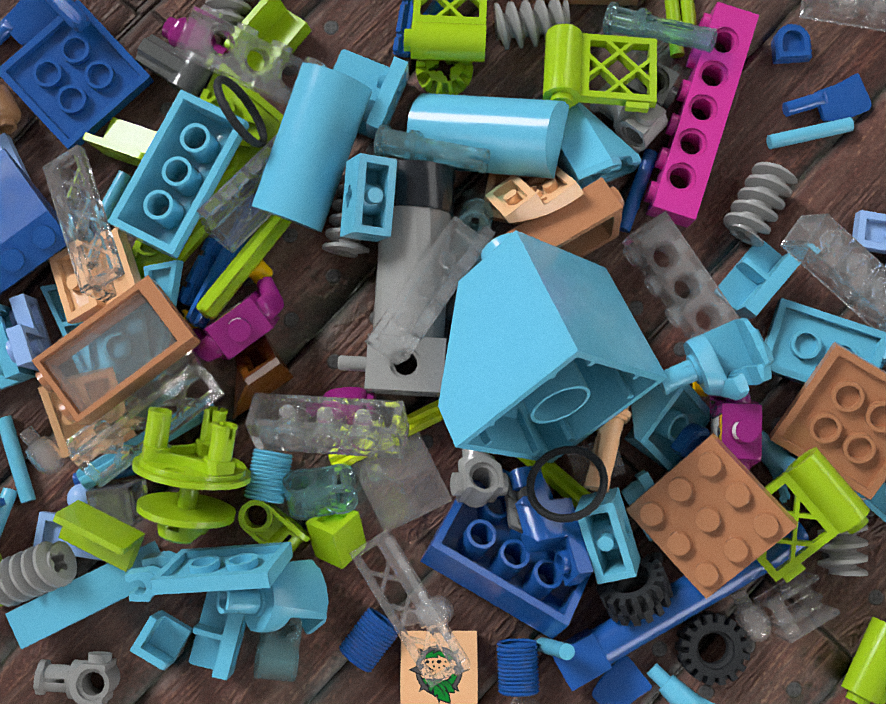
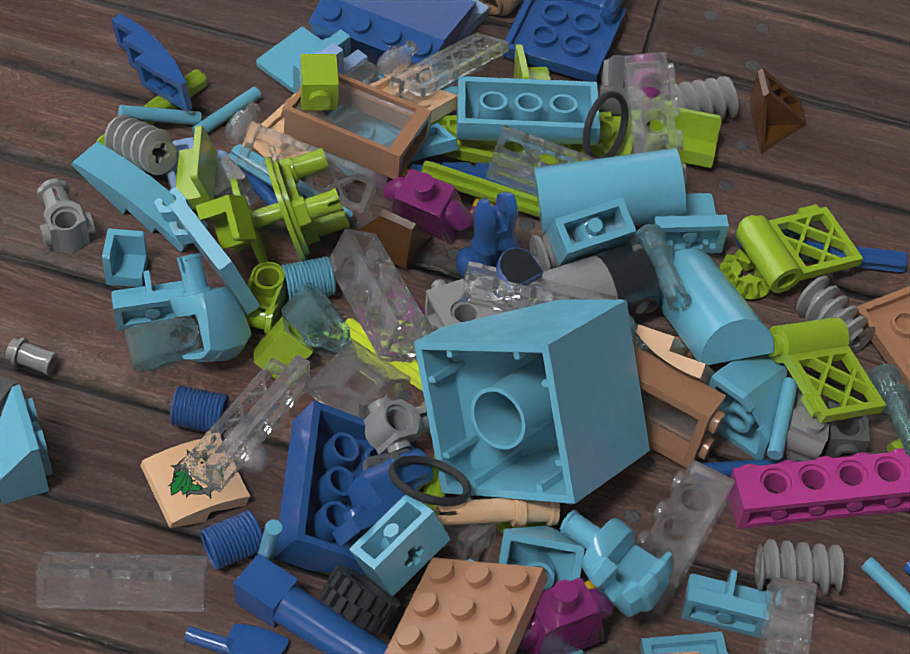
camera: 65 degrees right, 30 degrees down
(46, 311) = (364, 72): none -> clear piece
(48, 270) = (396, 59): none -> clear cylinder
(67, 377) = (319, 82): none -> lime brick
(200, 540) = (230, 220): none -> lime panel
(313, 287) = (492, 232): none -> blue piece
(398, 298) = (518, 267): none -> black tile
(627, 135) = (782, 419): none -> medium azure piece

